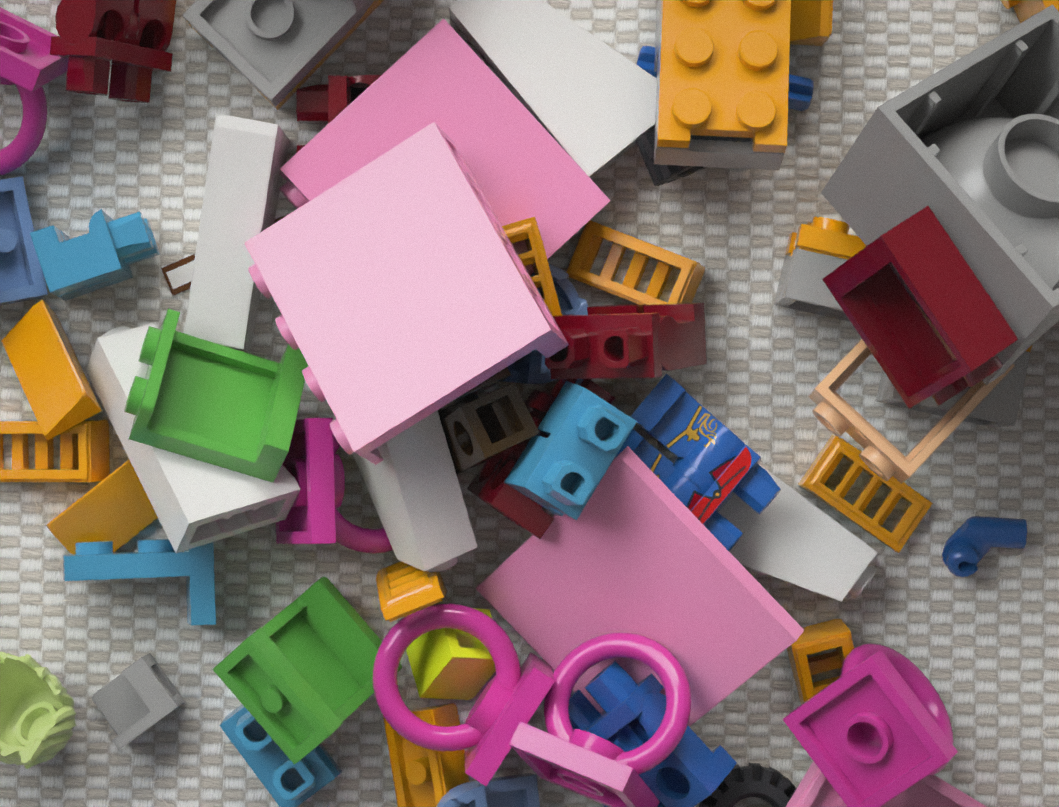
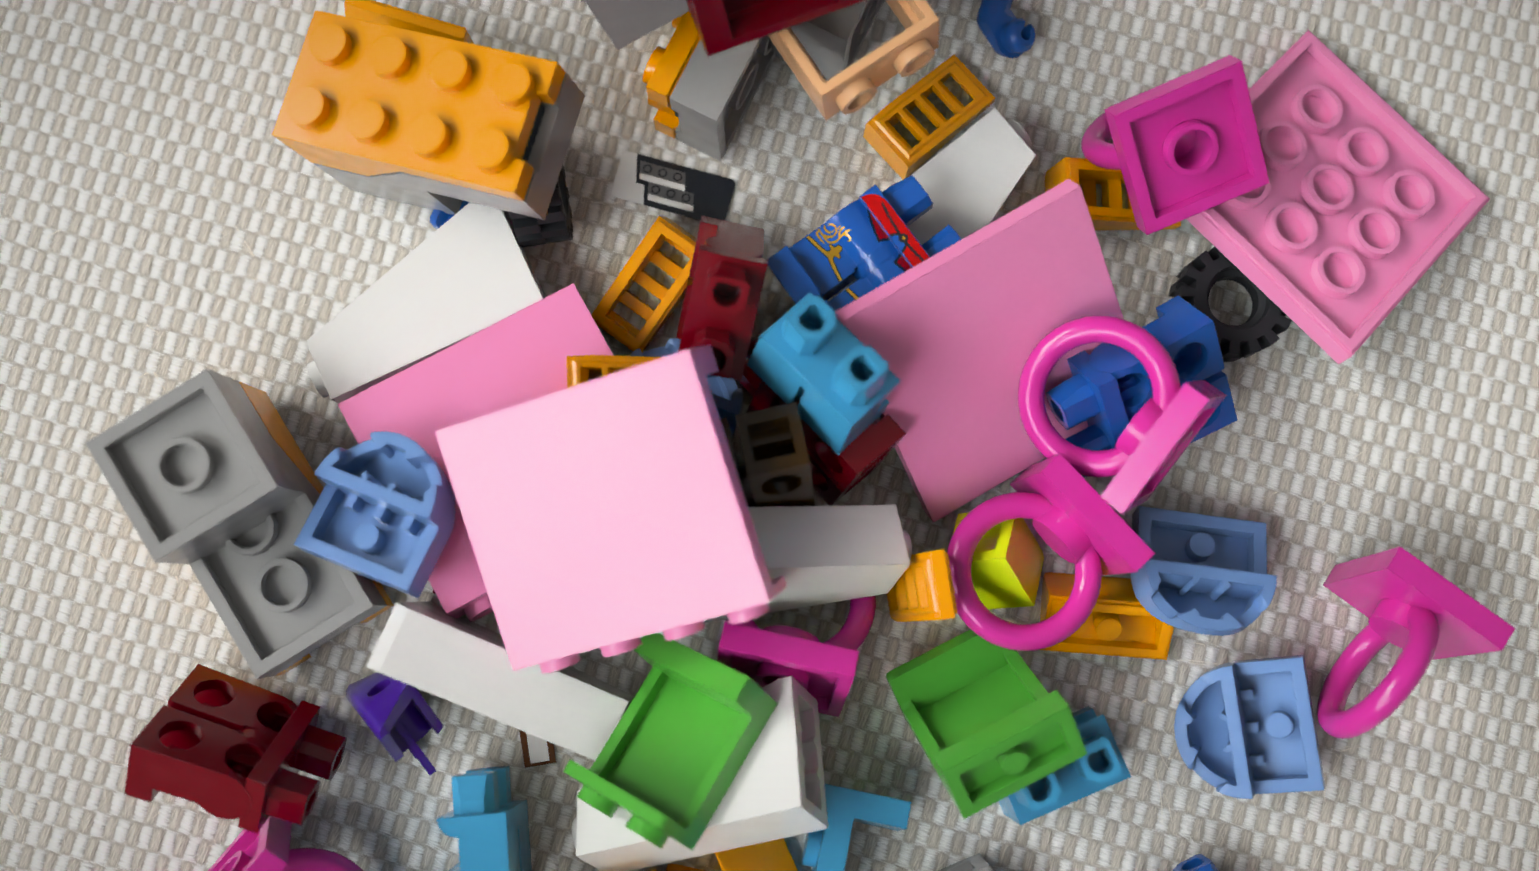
camera: 75 degrees left, 5 degrees down
(180, 140) = (394, 715): none -> dark purple piece
(354, 89) = (382, 512): none -> medium blue slope
(735, 265) = (672, 187): none -> sticker

